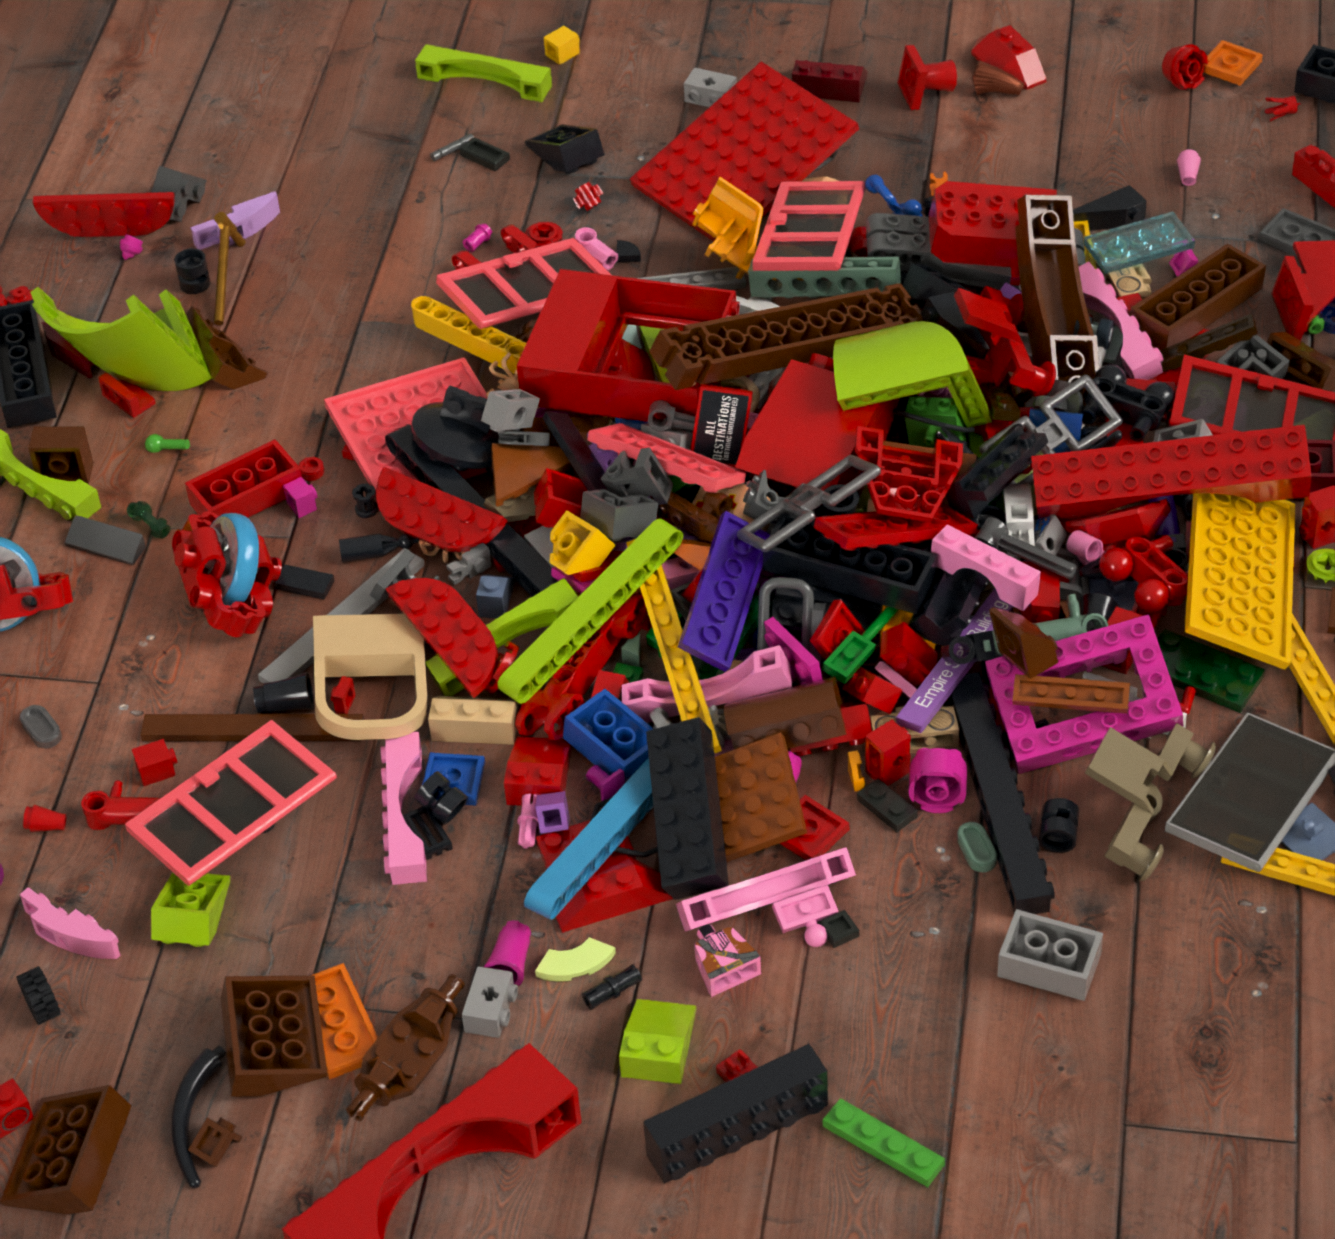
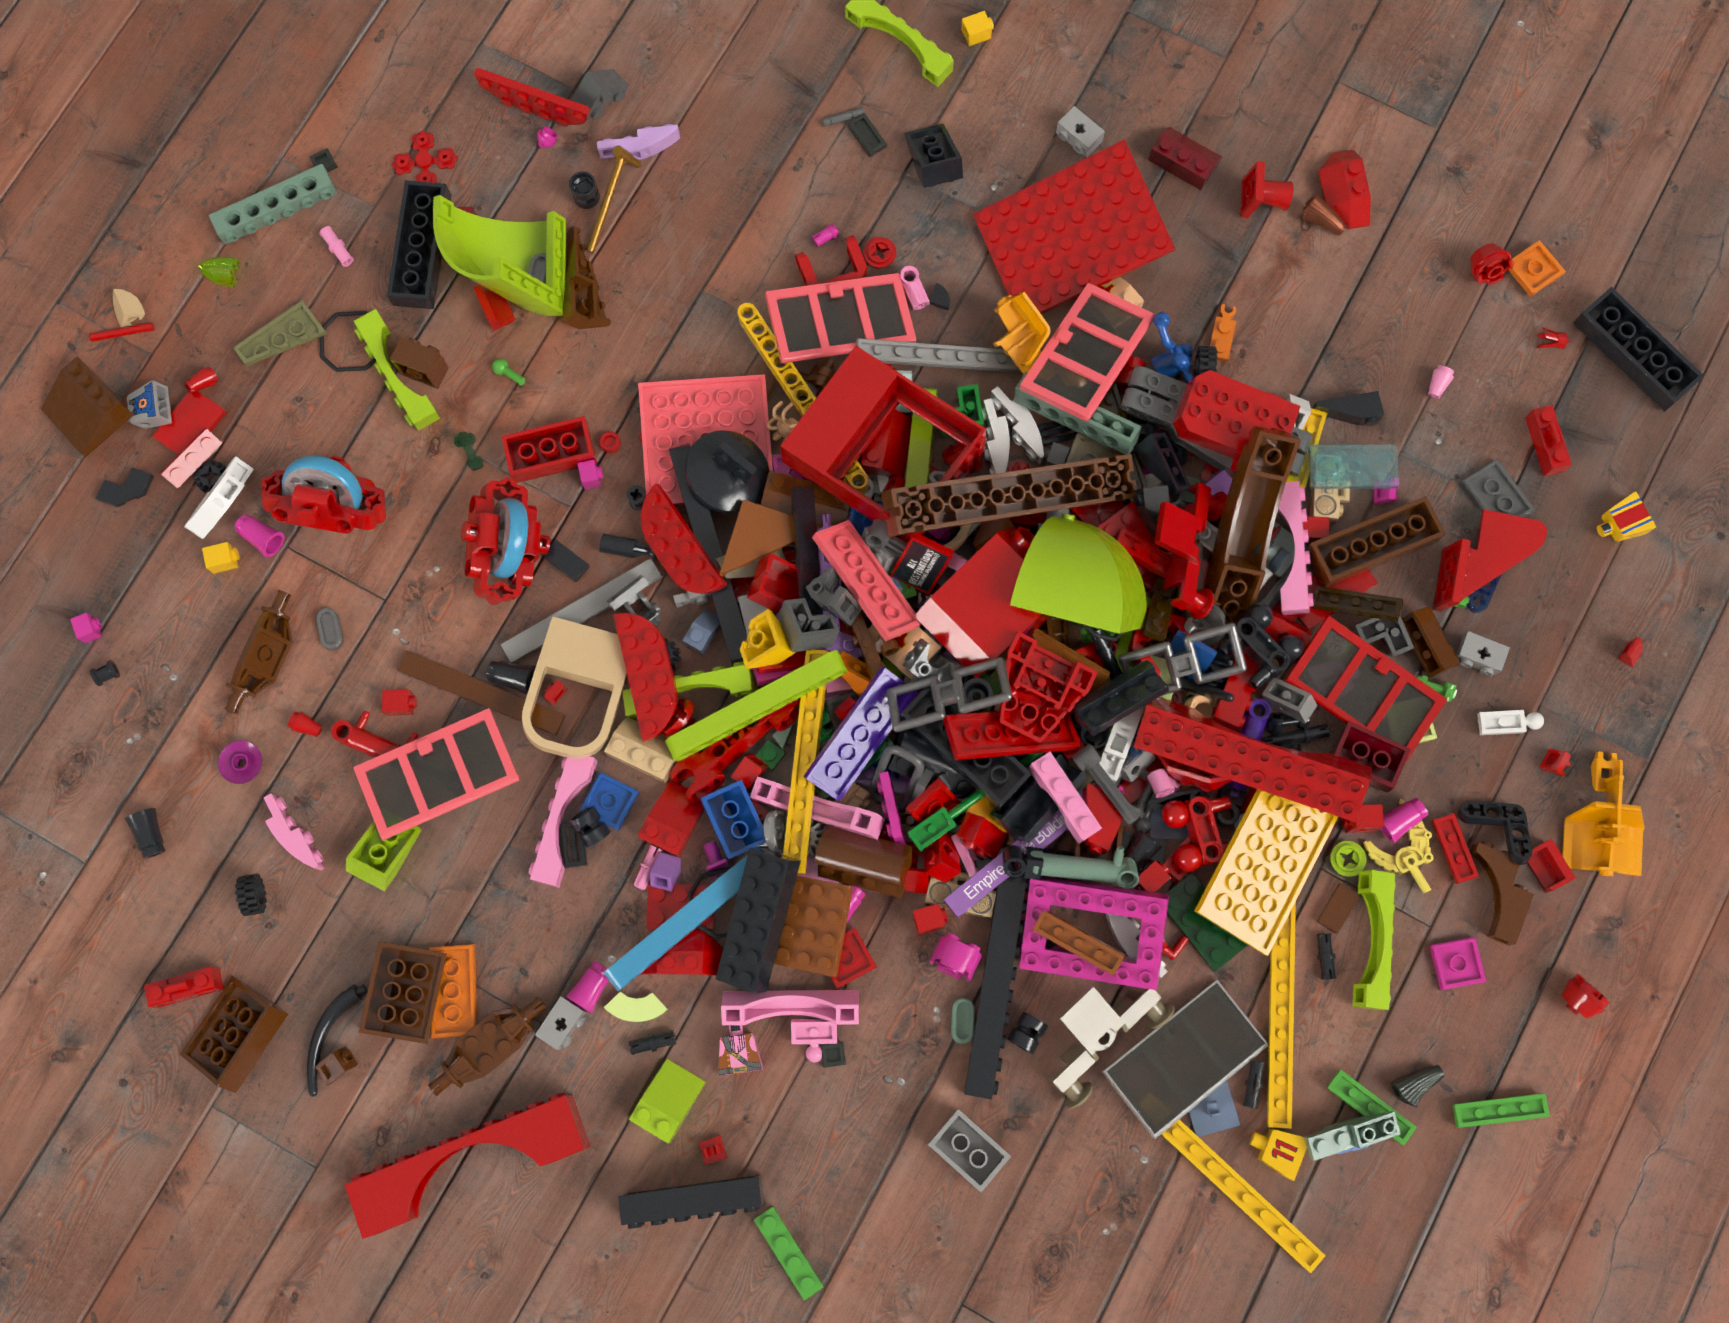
camera: 20 degrees right, 30 degrees up
(105, 540) = (430, 460): dark grey slope -> none
(510, 410) = (763, 481): light grey brick -> none
(524, 438) = (769, 504): dark grey piece -> none
(588, 196) = (930, 224): red gear -> none
(855, 774) = (902, 918): light orange tile -> none
(887, 805) = (913, 955): pearl dark grey plate -> none
(1023, 642) = (1060, 890): reddish brown slope -> none

